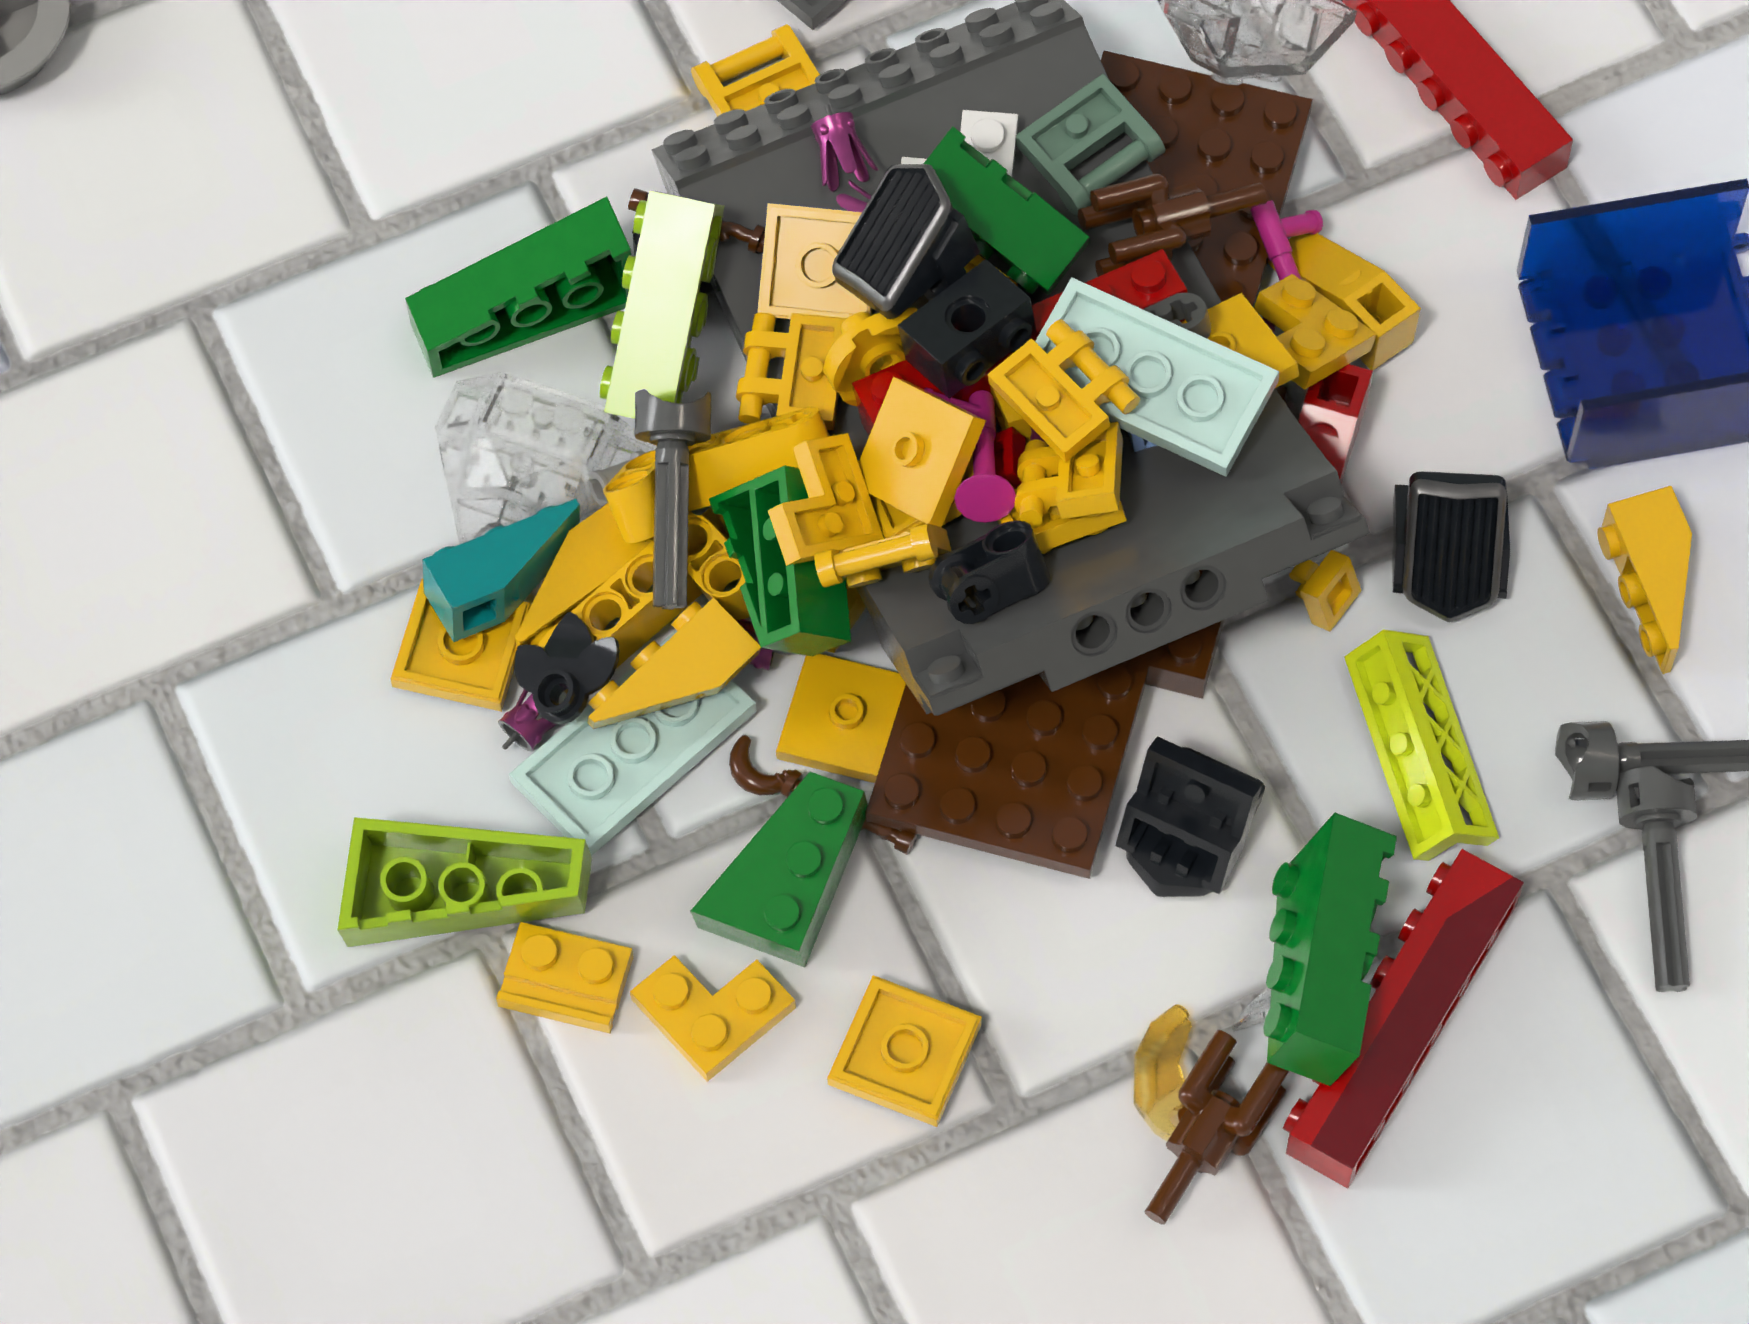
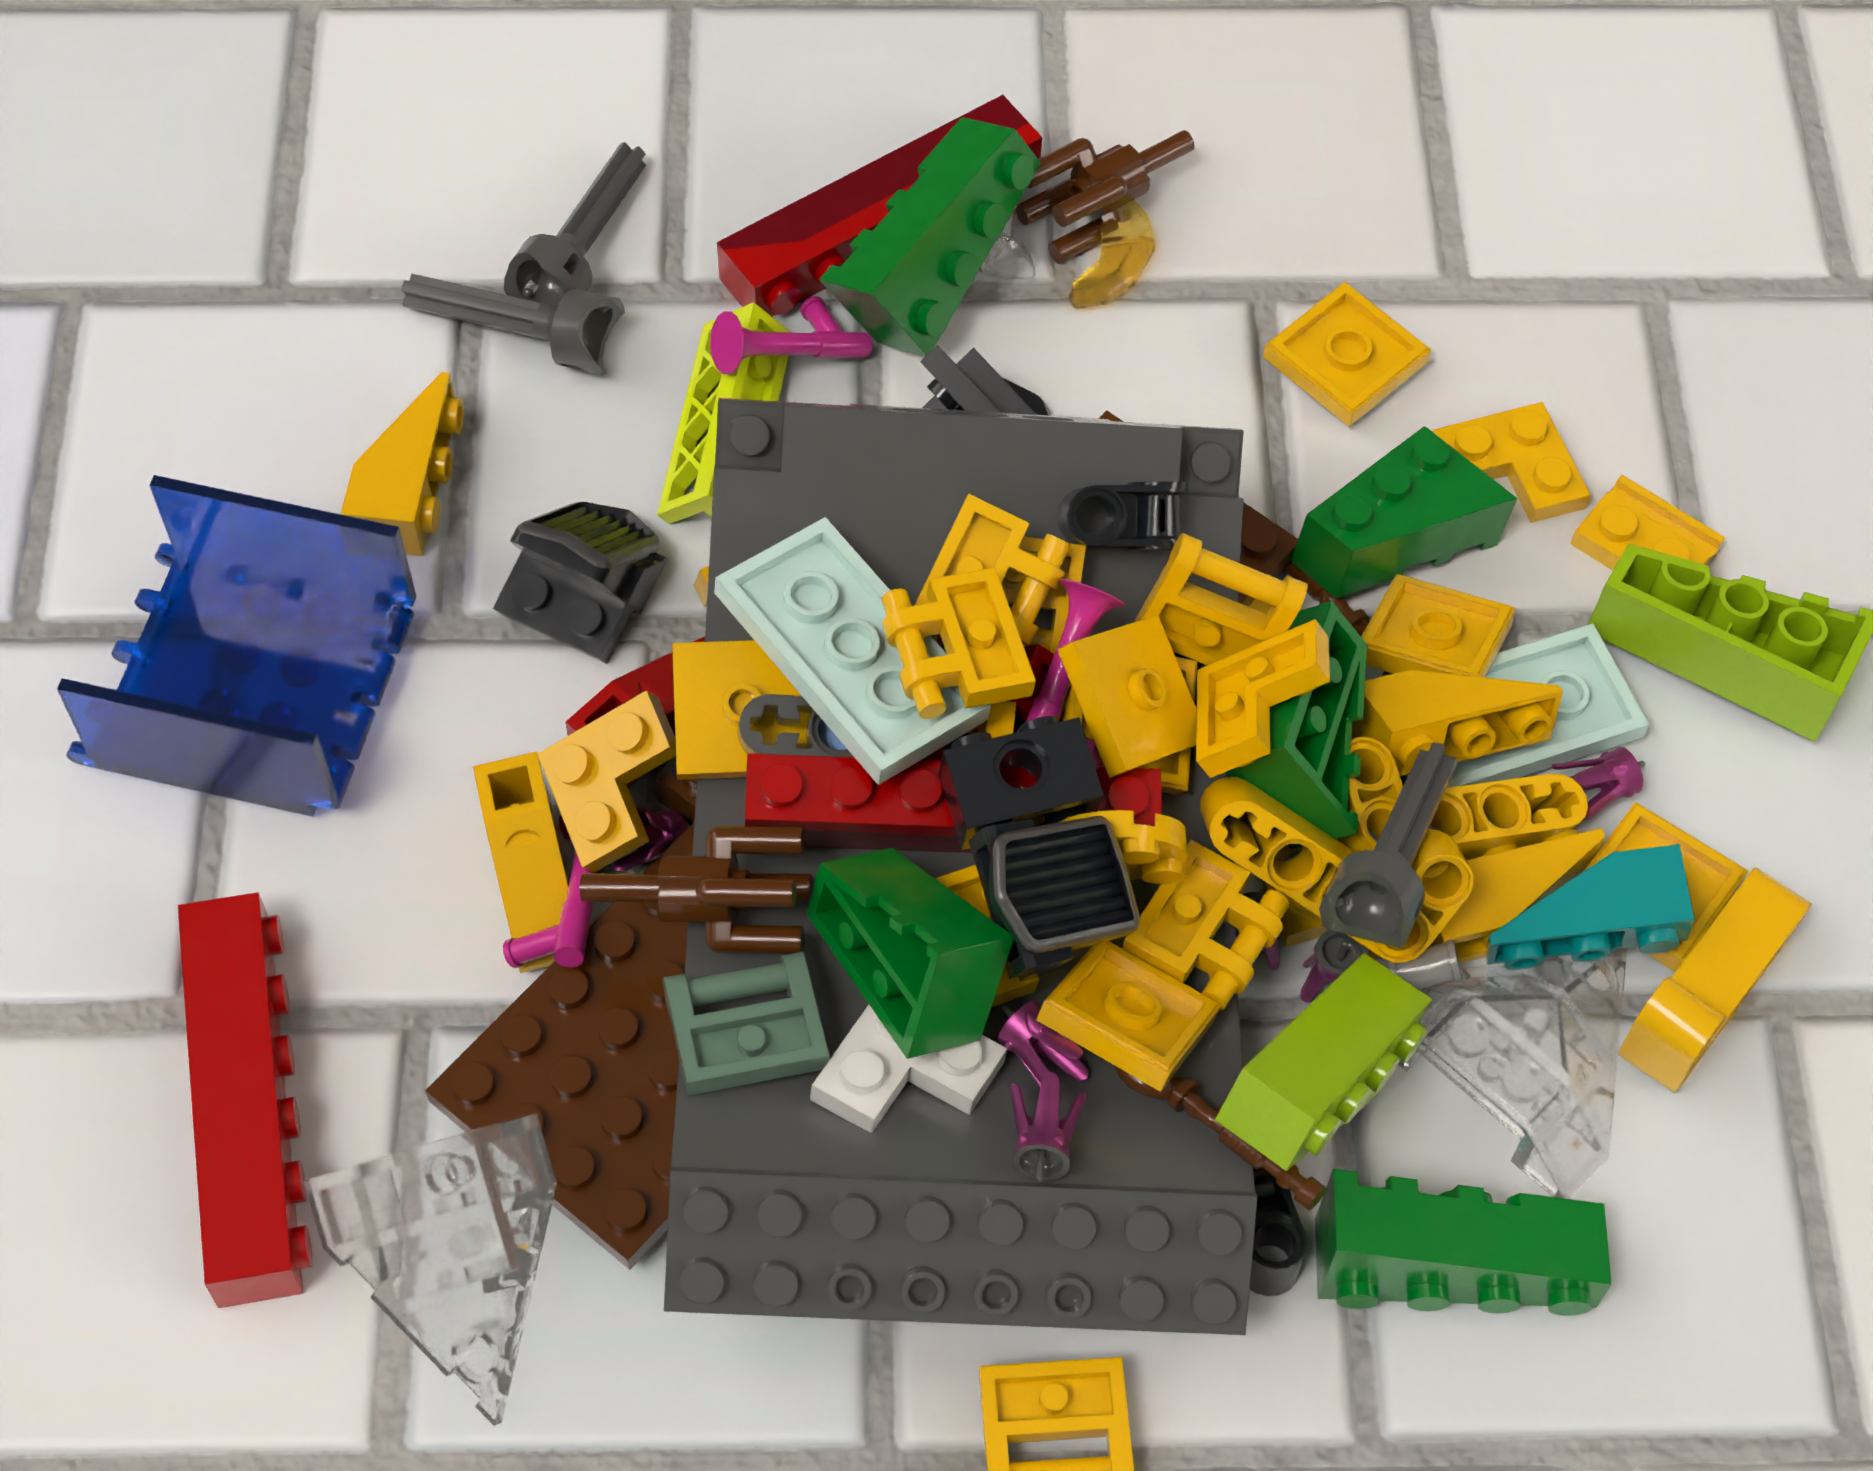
camera: 160 degrees left, 5 degrees down
(412, 523) = (1713, 980): none -> yellow beam
(566, 662) = (1566, 765): black plate -> none
(716, 775) = (1435, 630): none -> yellow plate
(1435, 769) = (733, 342): none -> dark pink piece

